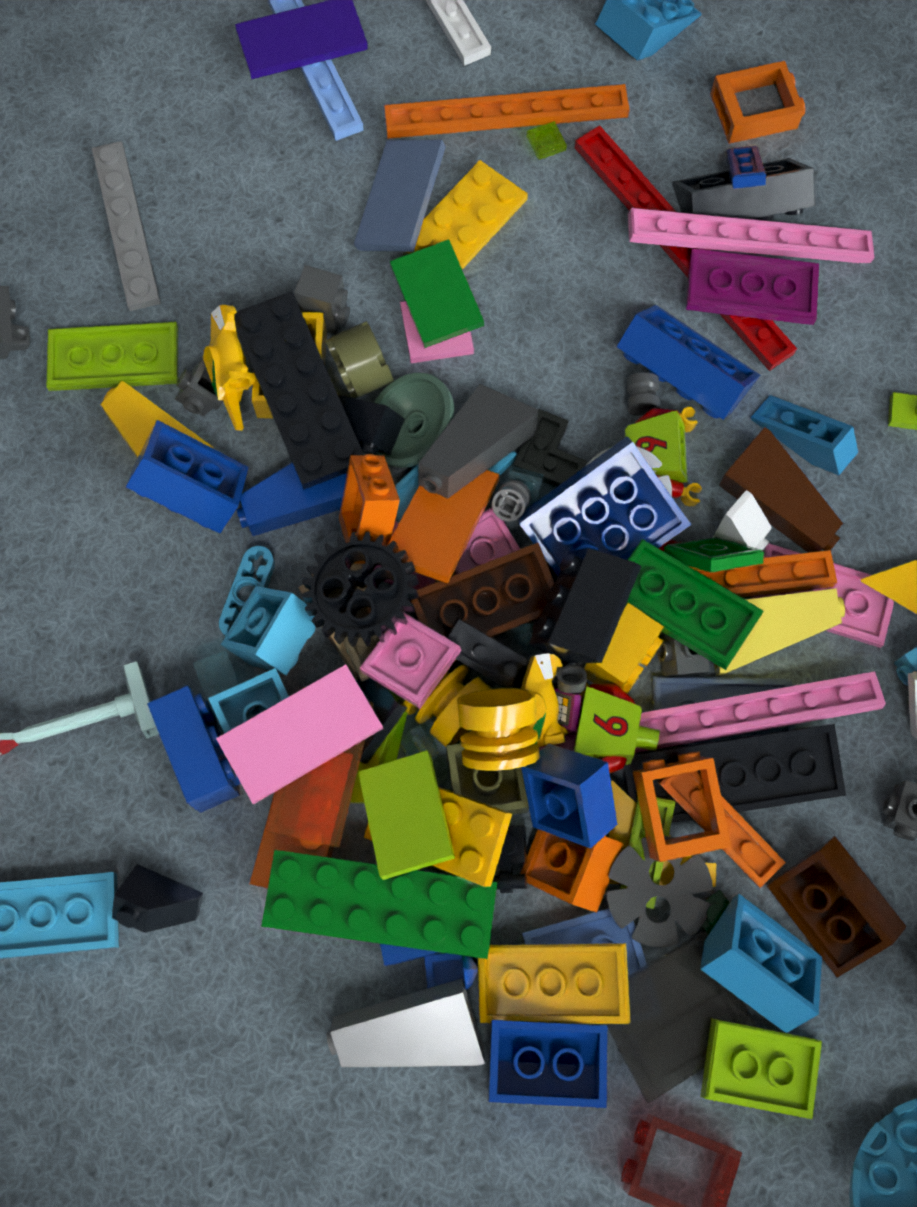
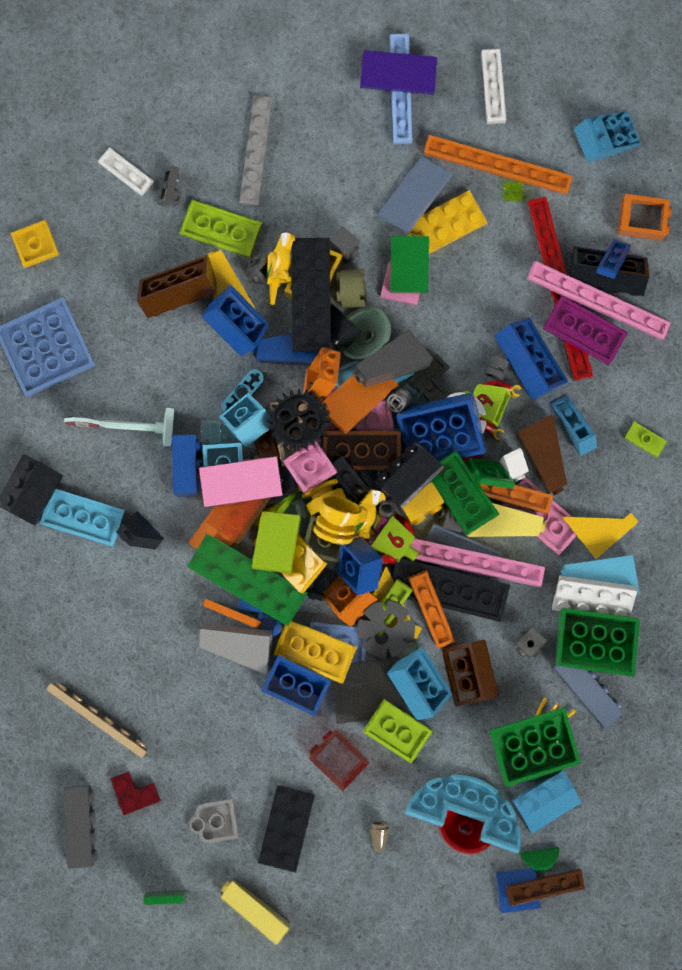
camera: 20 degrees right, 10 degrees up
(70, 466) = (177, 287): none -> reddish brown slope
(318, 659) = (266, 446): none -> reddish brown plate
(377, 978) = (232, 614): none -> orange tile
(691, 844) = (408, 613): orange window -> none

